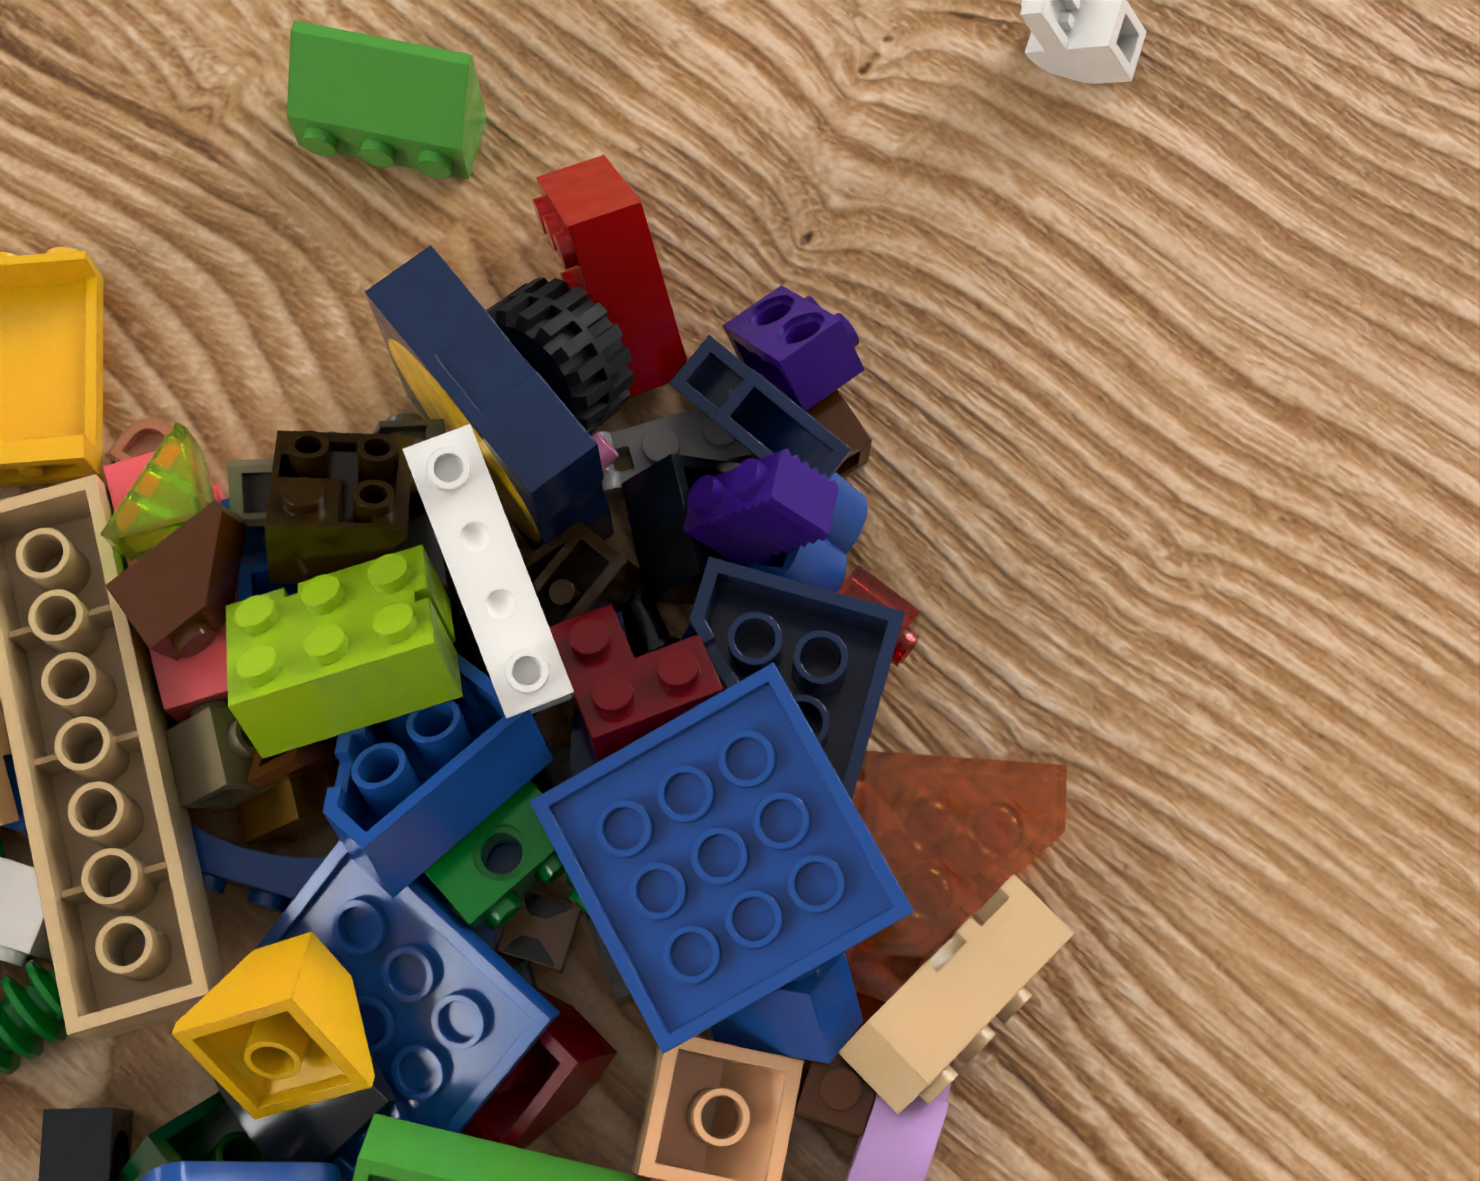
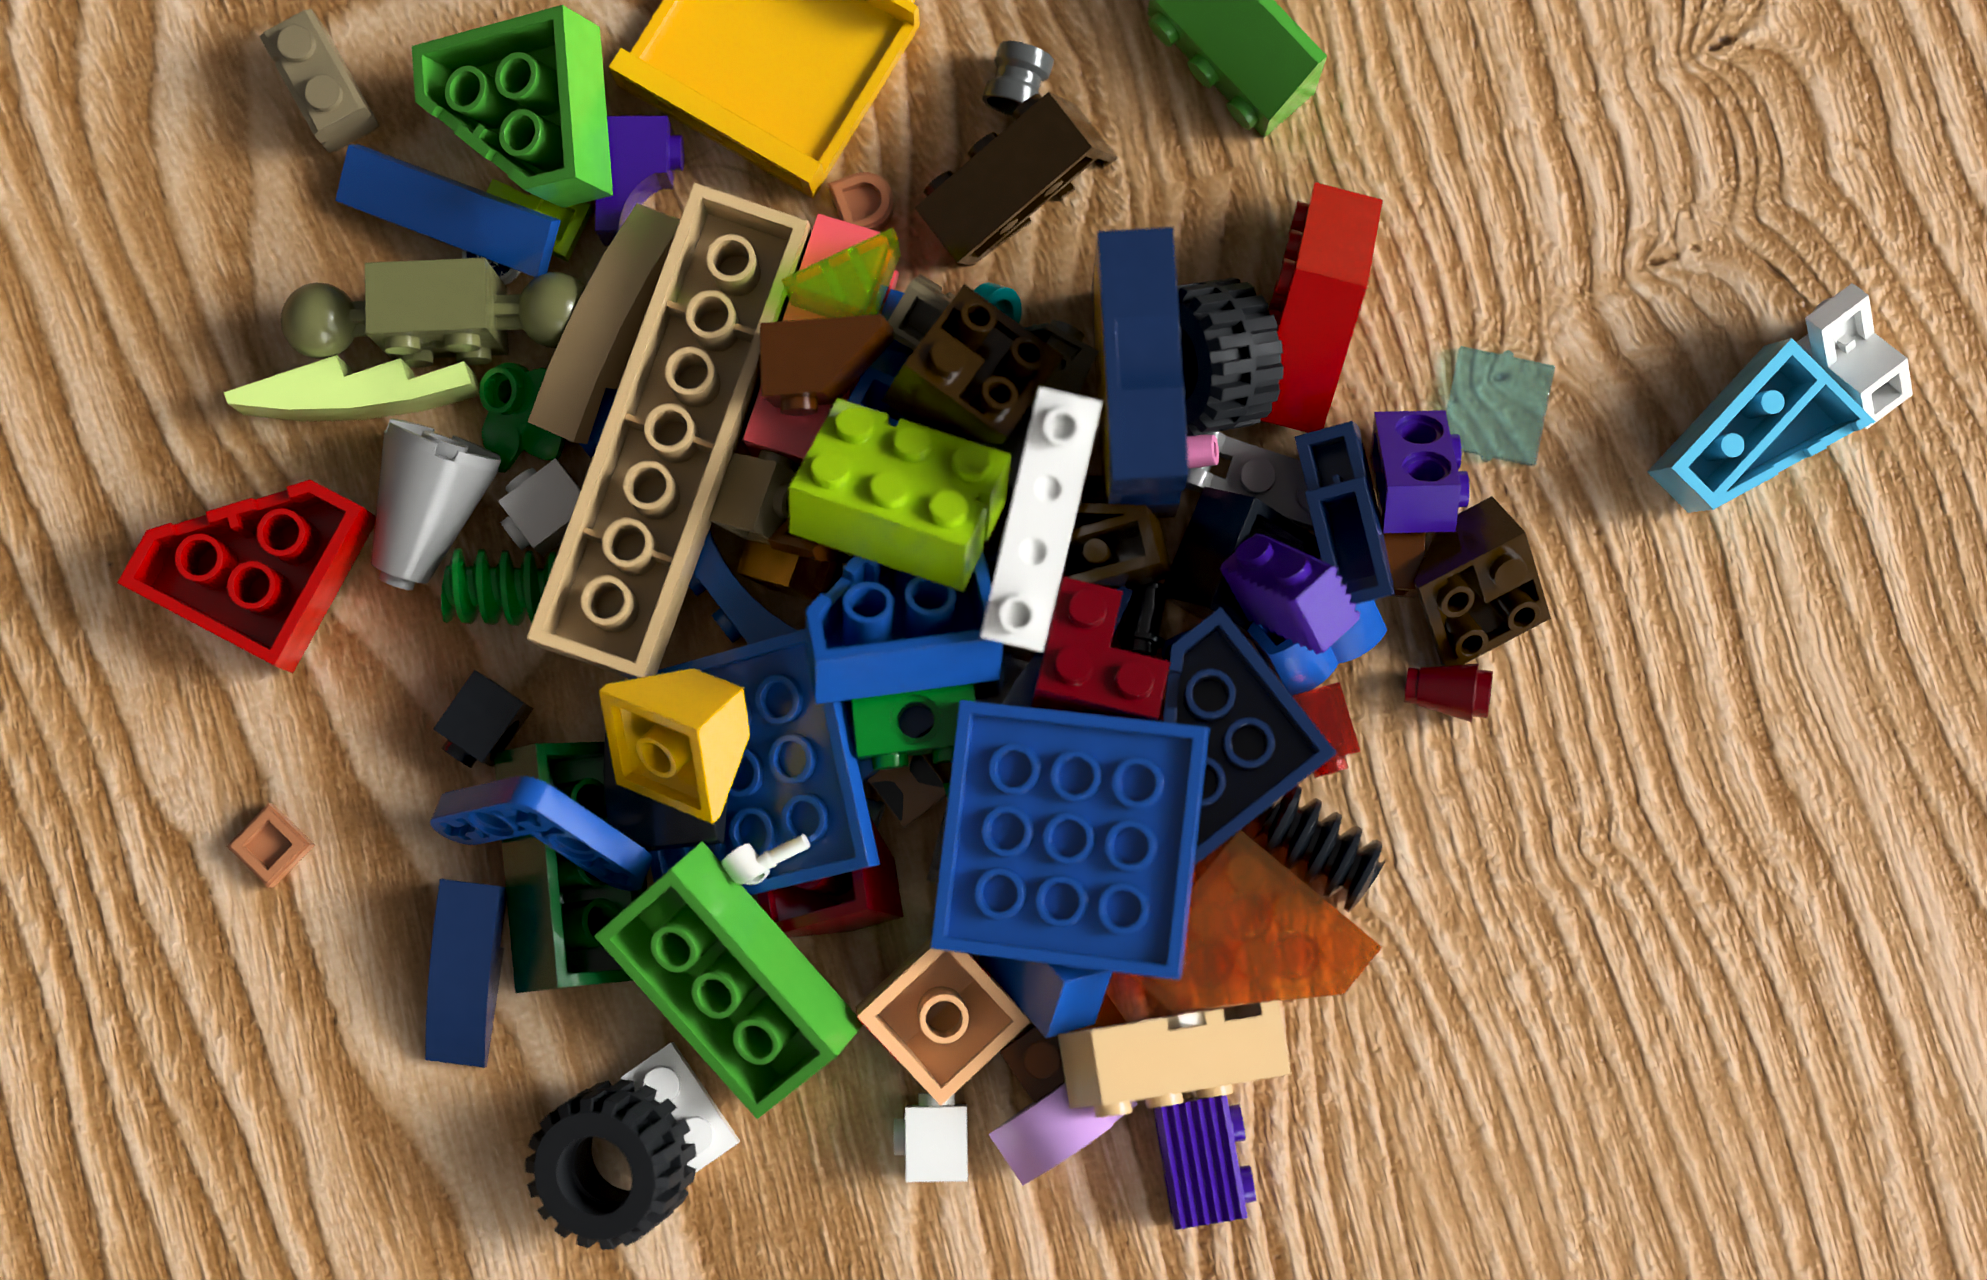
camera: 40 degrees right, 10 degrees up
(217, 252) = (1018, 75): none -> dark grey wheel
(267, 337) = (1012, 177): none -> dark brown wedge
(439, 1107) = (749, 868): none -> white hand
(823, 257) = (1499, 404): none -> clear light blue piece
(917, 406) = (1479, 584): none -> dark brown slope
(948, 718) = (1322, 847): none -> black piece
(958, 511) = (1451, 690): none -> dark red cone
(1045, 130) = (1757, 427): none -> medium azure wedge
(1051, 1080) = (1202, 1161): none -> dark purple brick

